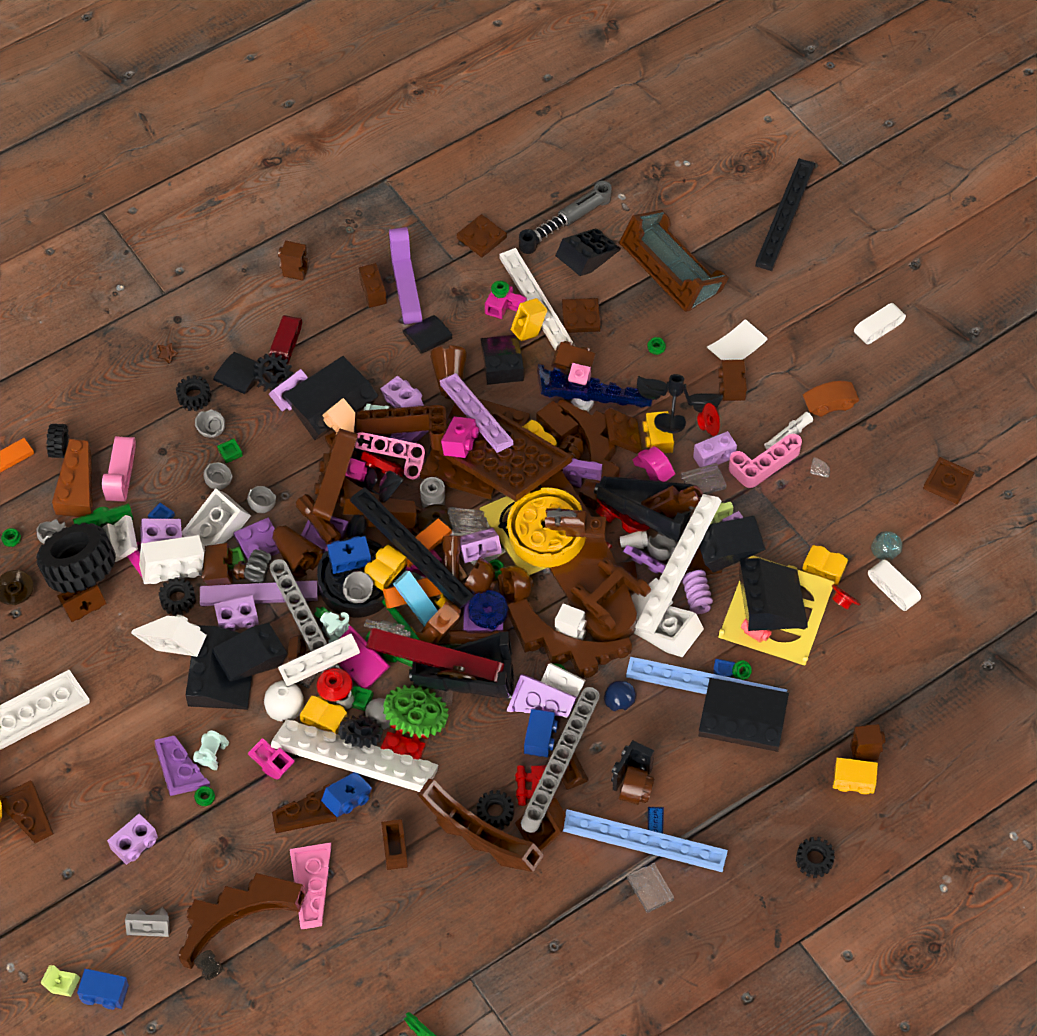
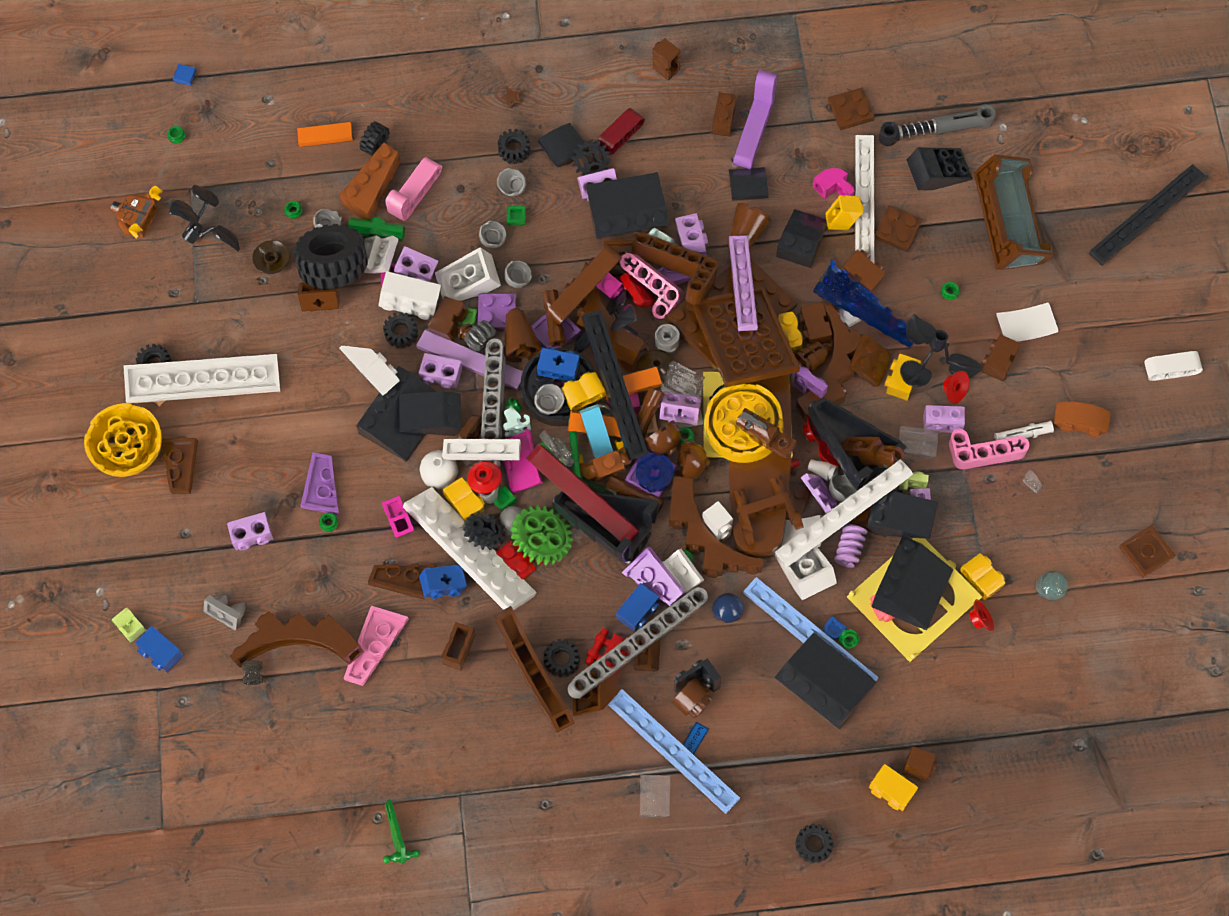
camera: 30 degrees right, 10 degrees up
(161, 512) = (428, 247): blue tile -> none
(208, 749) = (353, 481): light aqua piece -> none
(340, 416) = (621, 232): light nougat slope -> none
(456, 672) = (591, 521): dark brown dish -> none
(459, 437) = (713, 300): dark pink brick -> none
(500, 293) = (833, 175): green plate -> none
(579, 374) = (858, 288): bright pink bracket -> none
(655, 463) = (881, 406): dark pink brick -> none
(894, 585) = (1035, 627): white beam -> none

